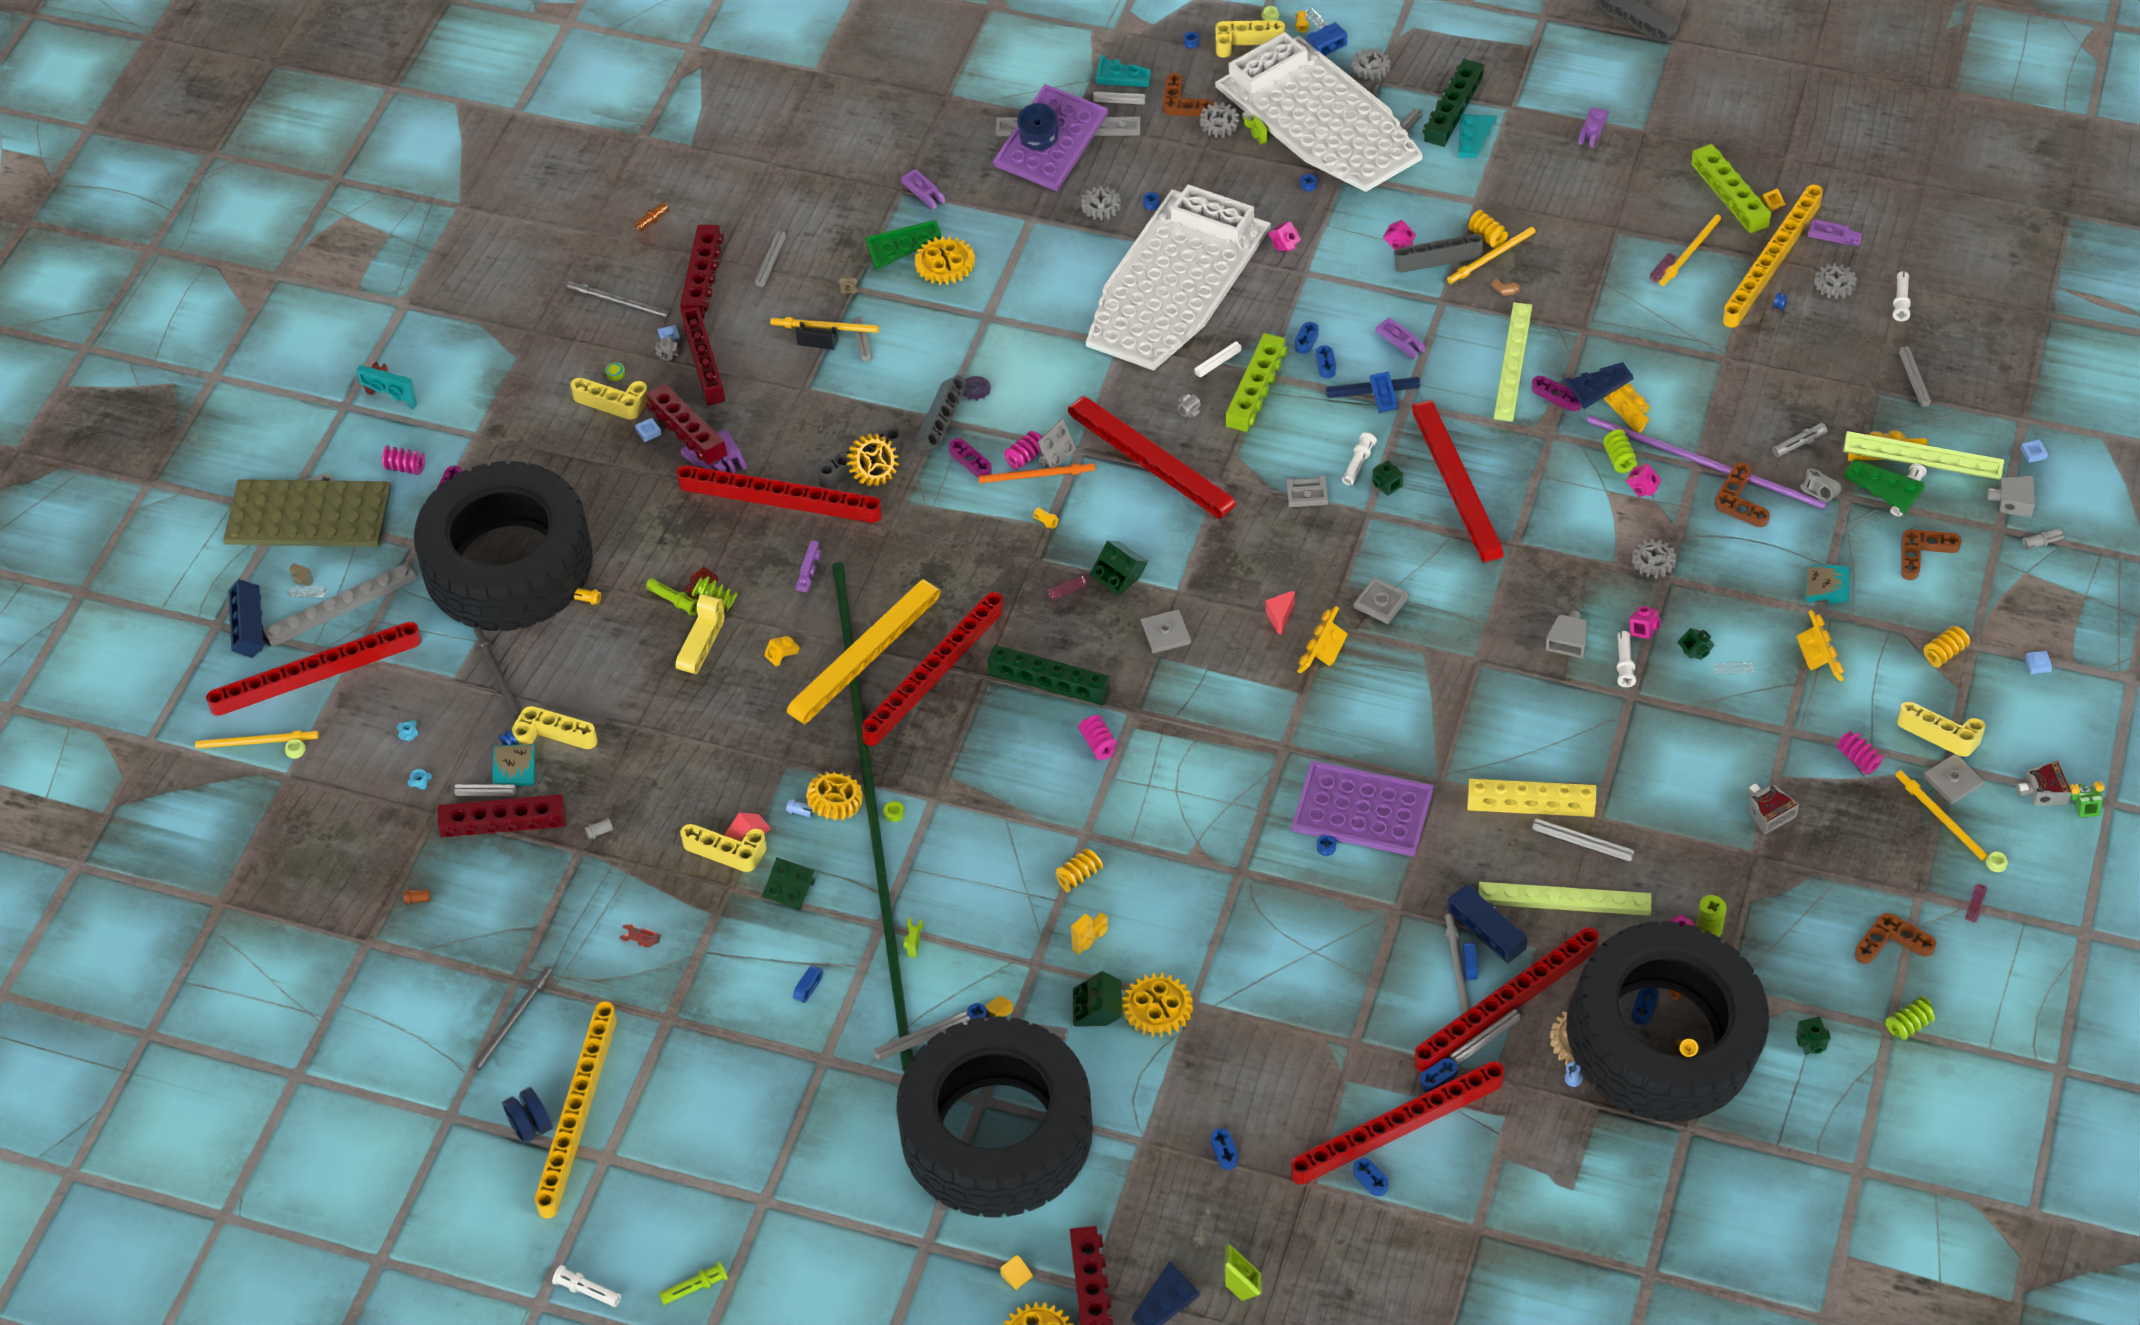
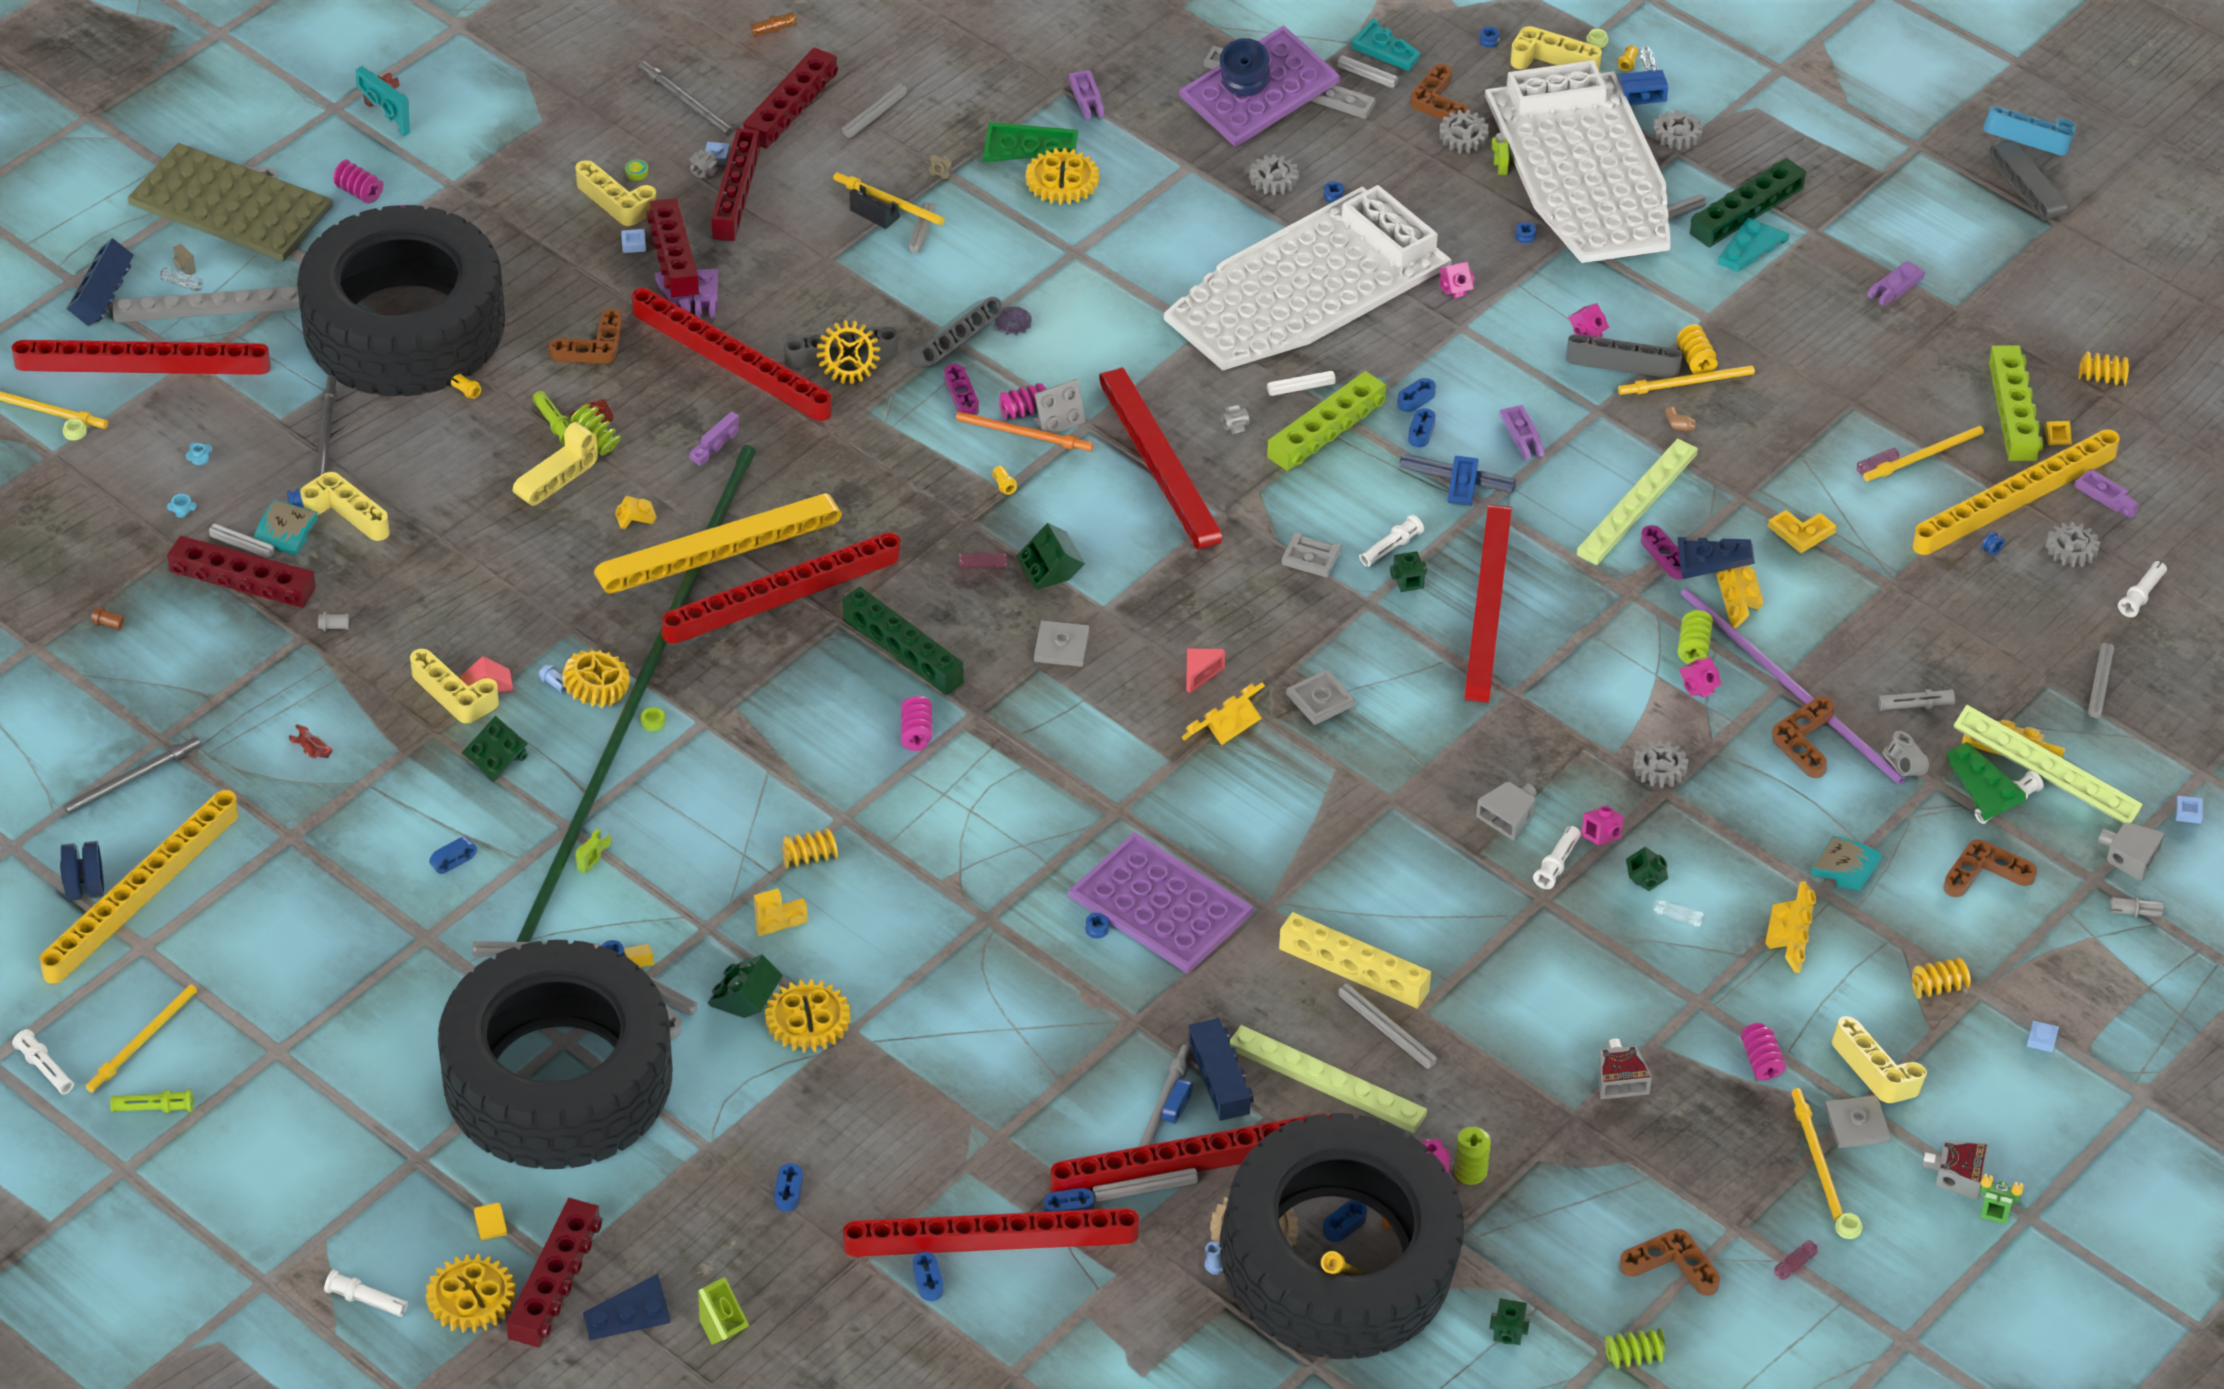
camera: 20 degrees right, 5 degrees down
(641, 1272) = (108, 1070): none -> yellow bar
(672, 523) = (600, 345): none -> dark orange beam
(1642, 344) = (1802, 535): none -> yellow plate
(1775, 138) = (2104, 368): none -> yellow piece

